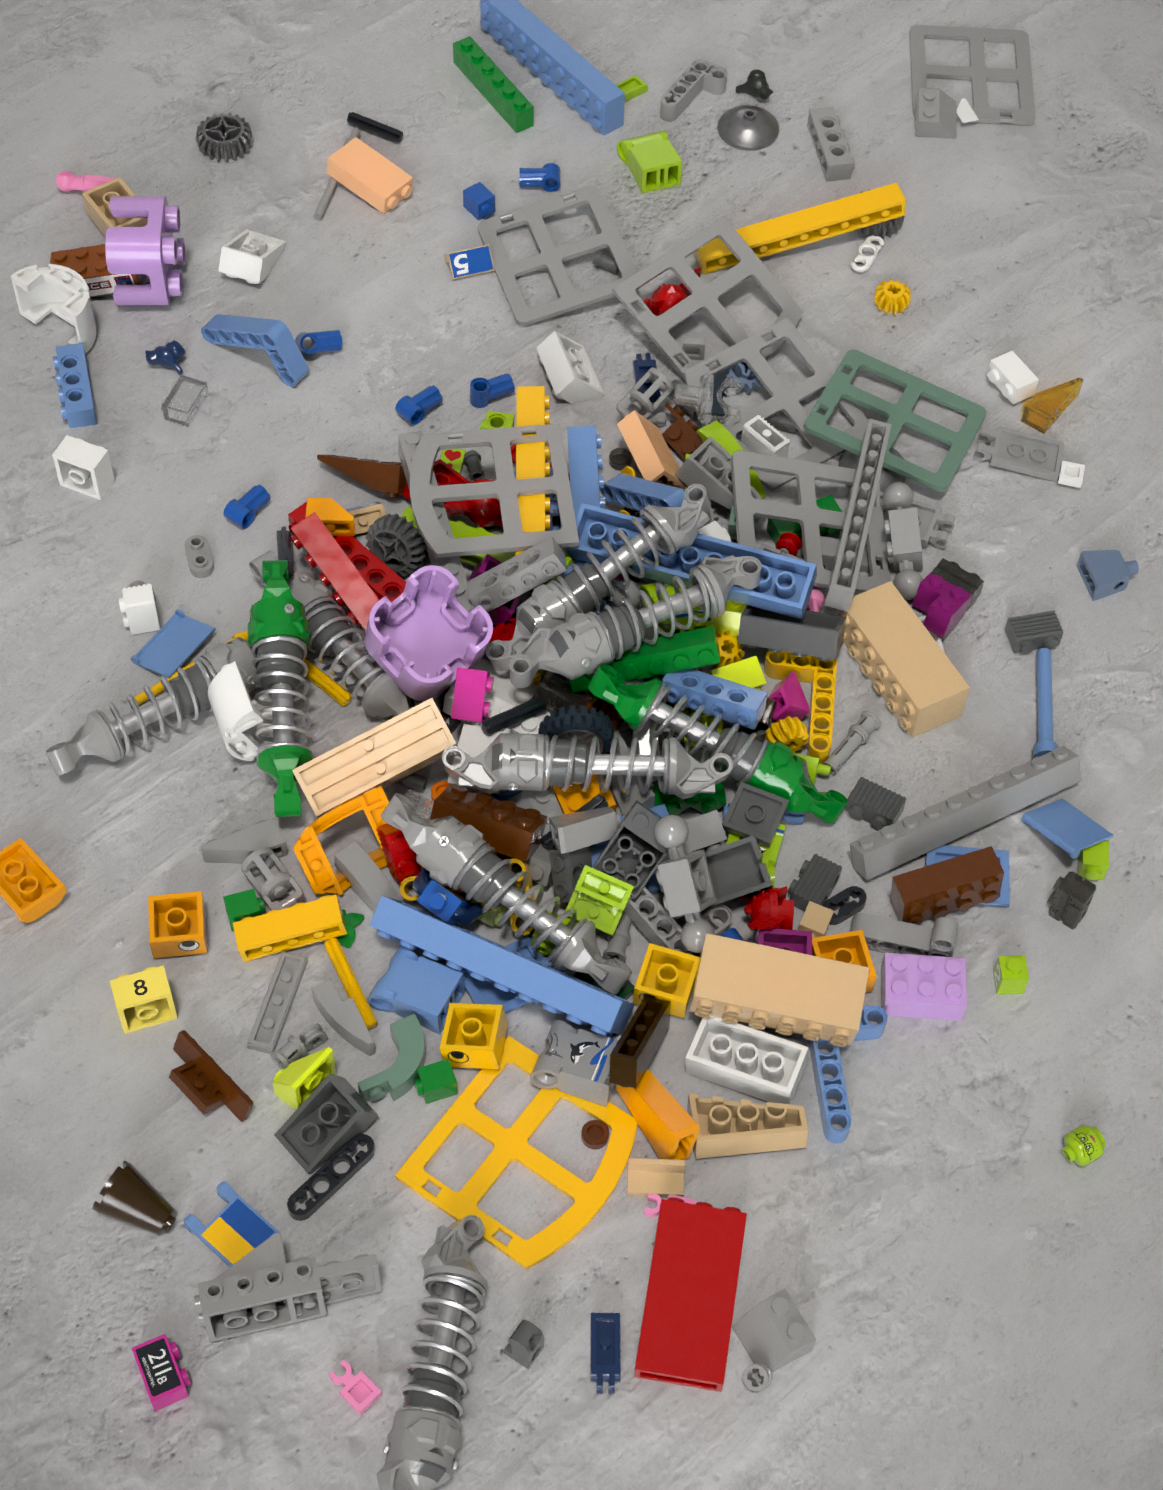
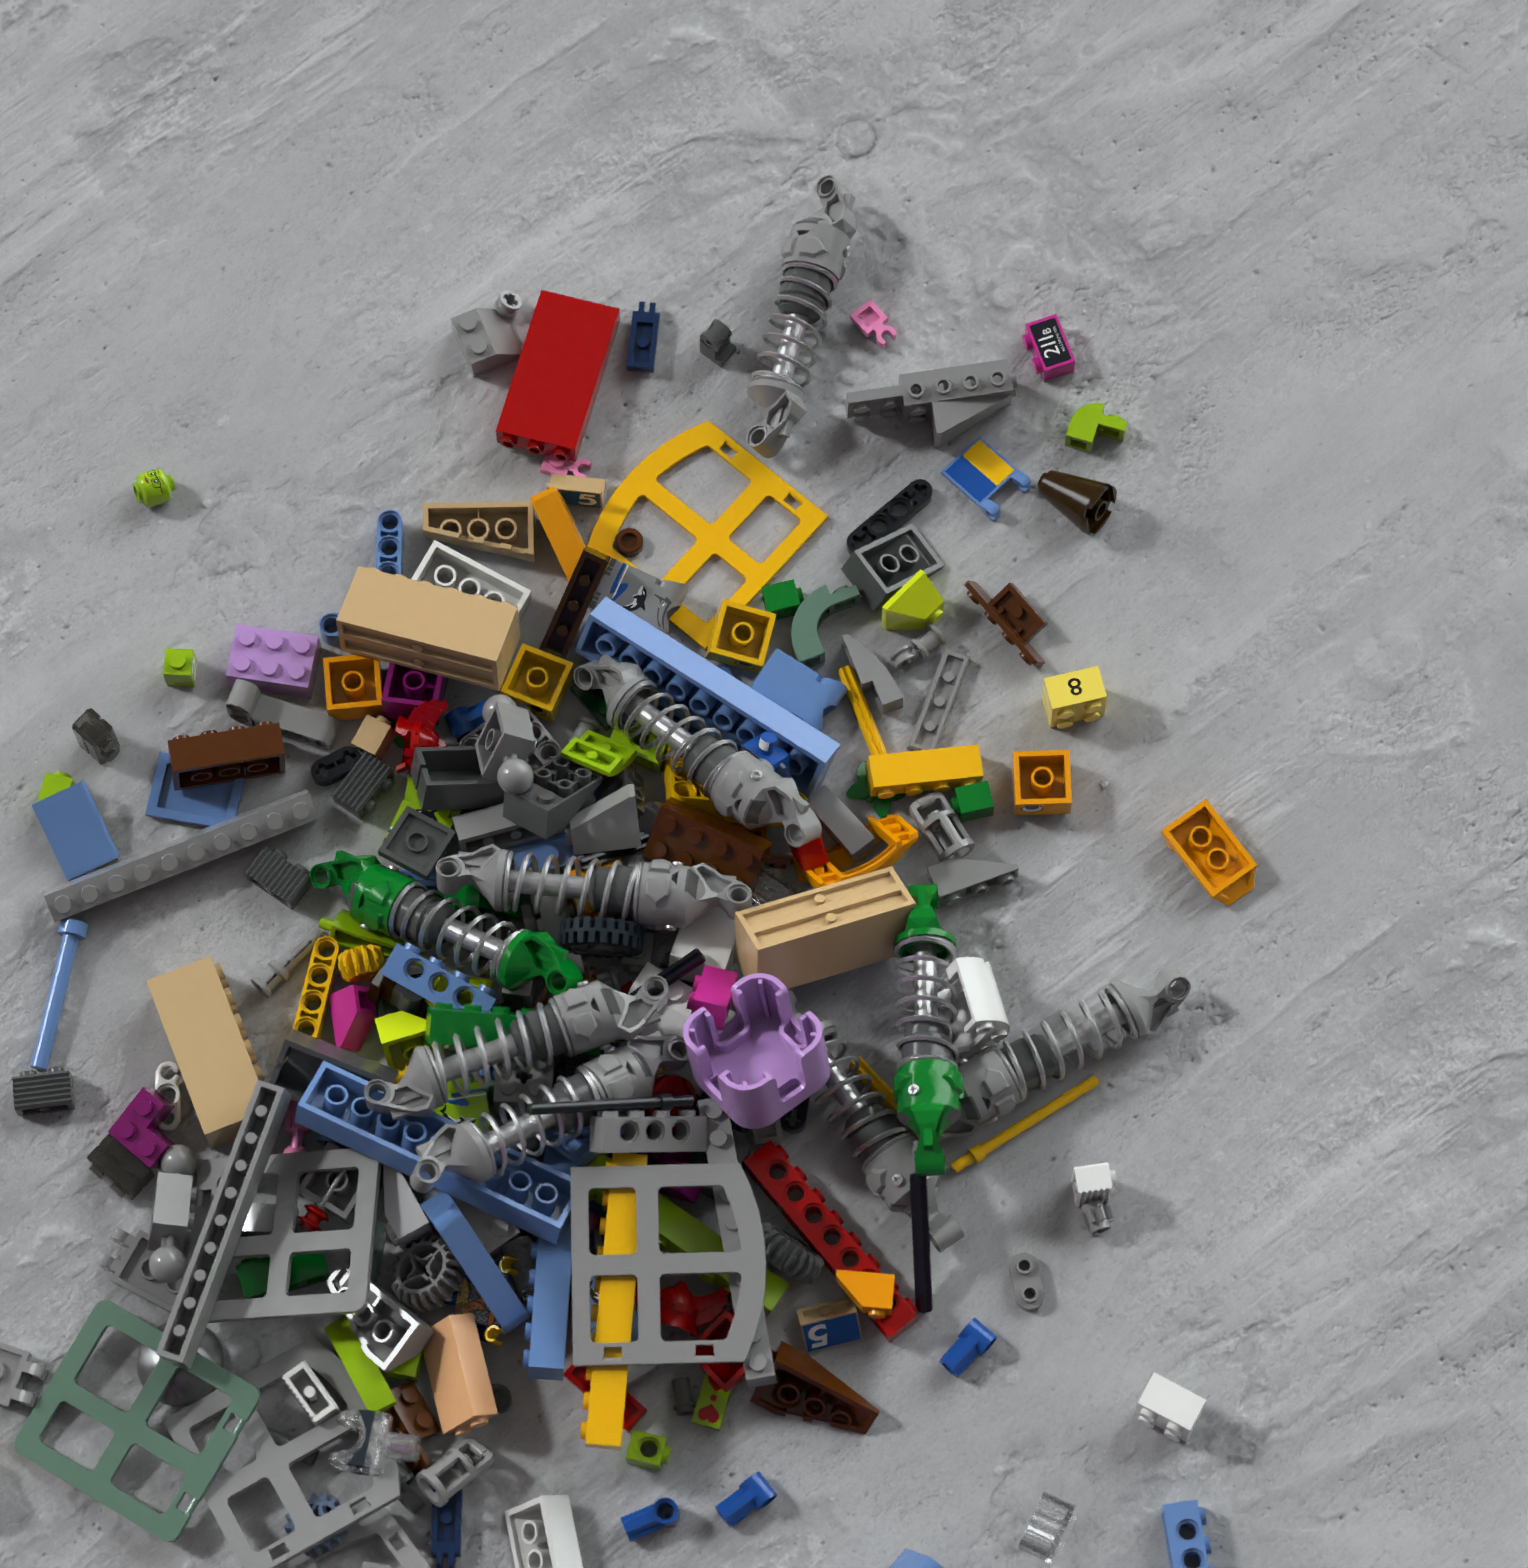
camera: 170 degrees left, 15 degrees up
(118, 1291) = (1089, 422): none -> lime brick
(172, 644) = (1053, 1152): medium blue piece -> none
(335, 568) = (851, 1196): brick -> none
(506, 595) = (662, 1102): none -> black bar

